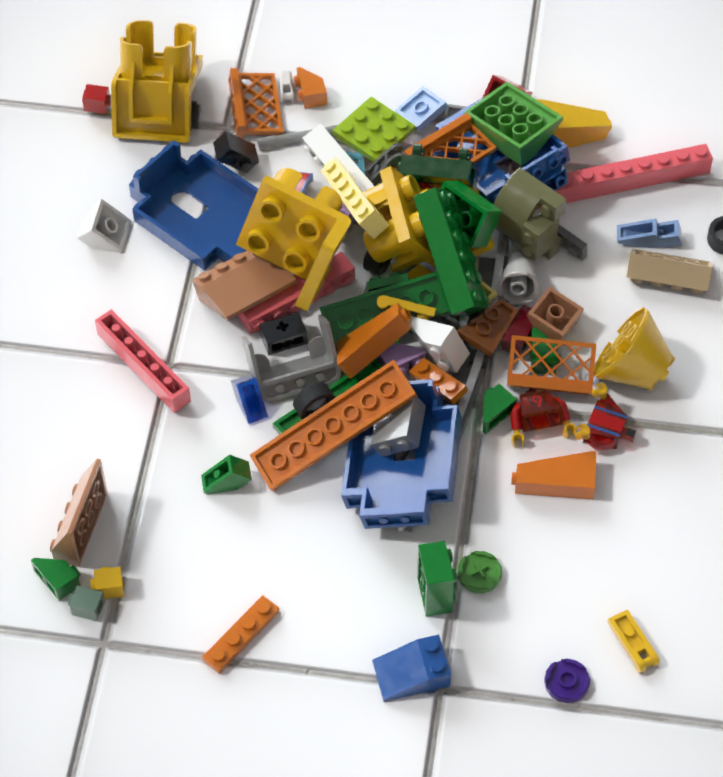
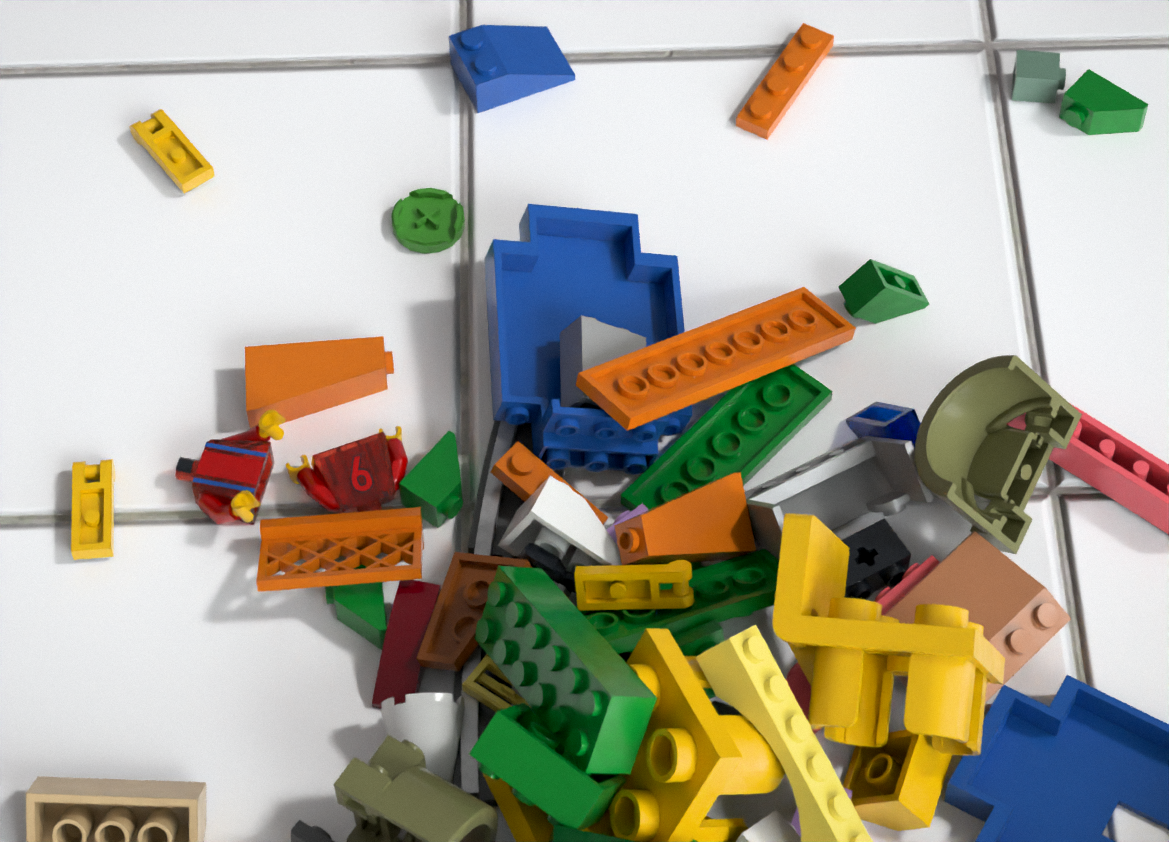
camera: 170 degrees right, 0 degrees up
(80, 516) = (1100, 177): nougat slope -> none
(109, 582) = (1014, 108): yellow brick -> none
(200, 353) = (981, 462): none -> olive piece
(312, 399) = (764, 400): black tyre -> none
(436, 578) = (493, 148): green brick -> none
(555, 314) = (339, 656): nougat slope -> none
(567, 680) = (272, 90): dark purple tile -> none
(637, 354) = (190, 583): yellow cone -> none
(681, 424) = (92, 510): none -> yellow plate

